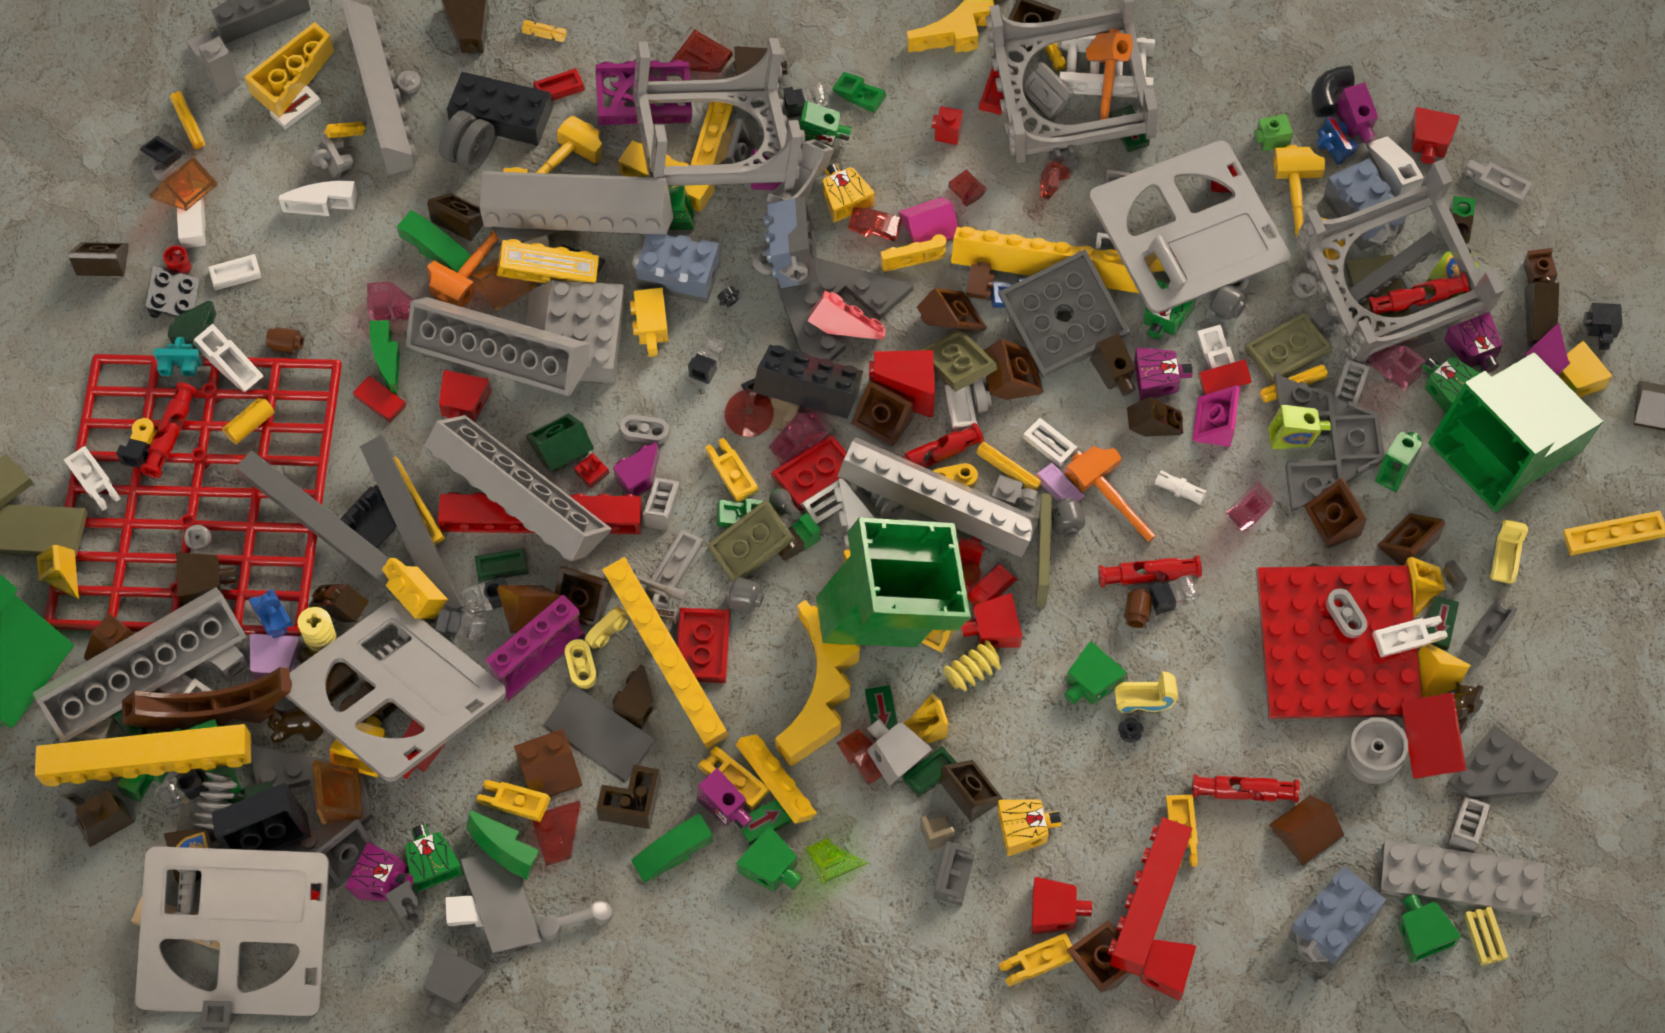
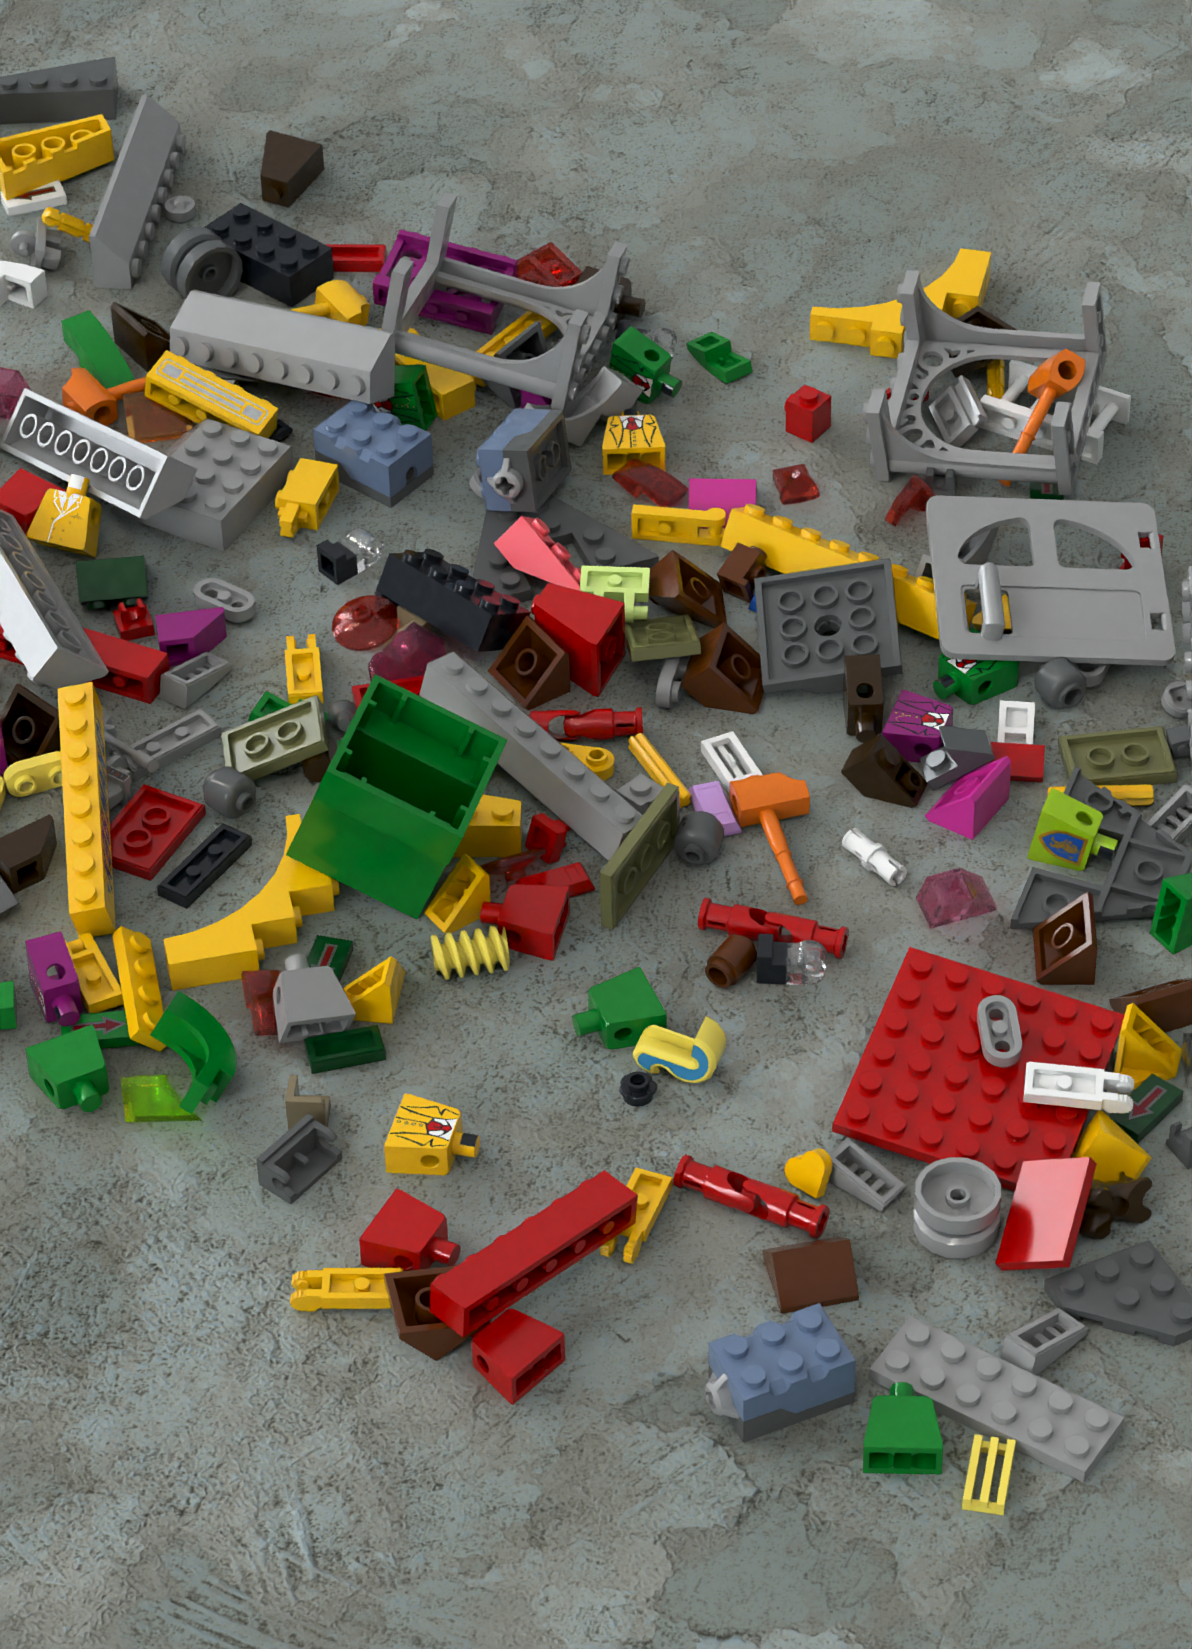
camera: 25 degrees right, 20 degrees down
(503, 403) = (68, 519): none -> yellow torso
(544, 31) = (372, 203): yellow axle -> none
(728, 296) = (418, 503): black plate -> none
(756, 658) = (204, 865): none -> black tile
(850, 813) = (202, 1045): none -> green arch
(907, 326) = (619, 584): none -> yellowish green plate
(960, 408) = (639, 691): white tile -> none
(969, 788) = (379, 1075): dark brown slope -> none
(1195, 389) = (961, 753): none -> dark grey slope
(1271, 756) = (810, 1172): none -> yellow tile
(1303, 736) = (860, 1161): none -> light grey slope

